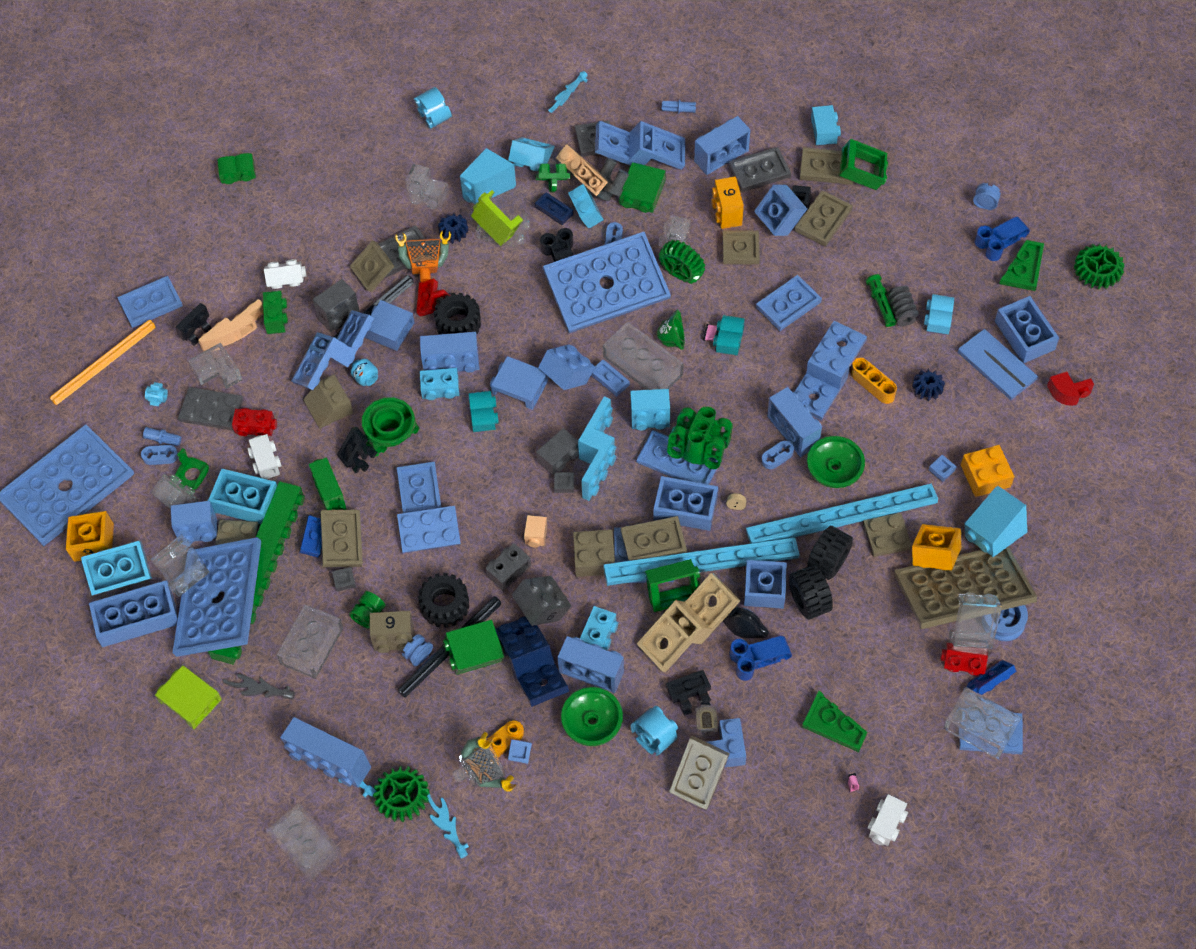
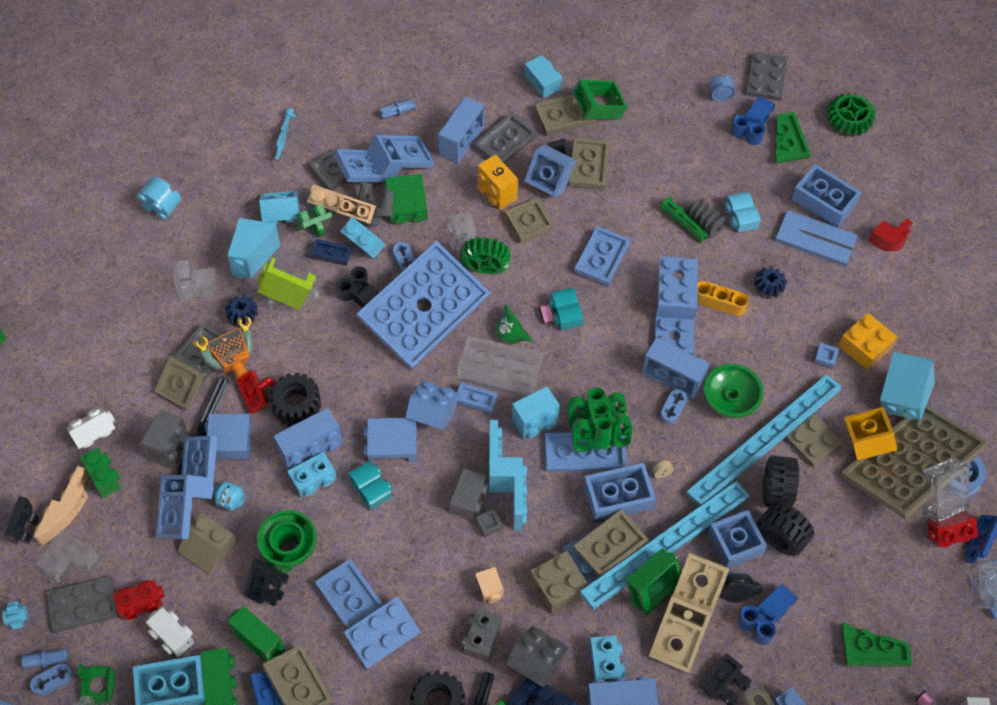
camera: 30 degrees left, 0 degrees up
(1039, 202) = (766, 76): none -> flat silver plate

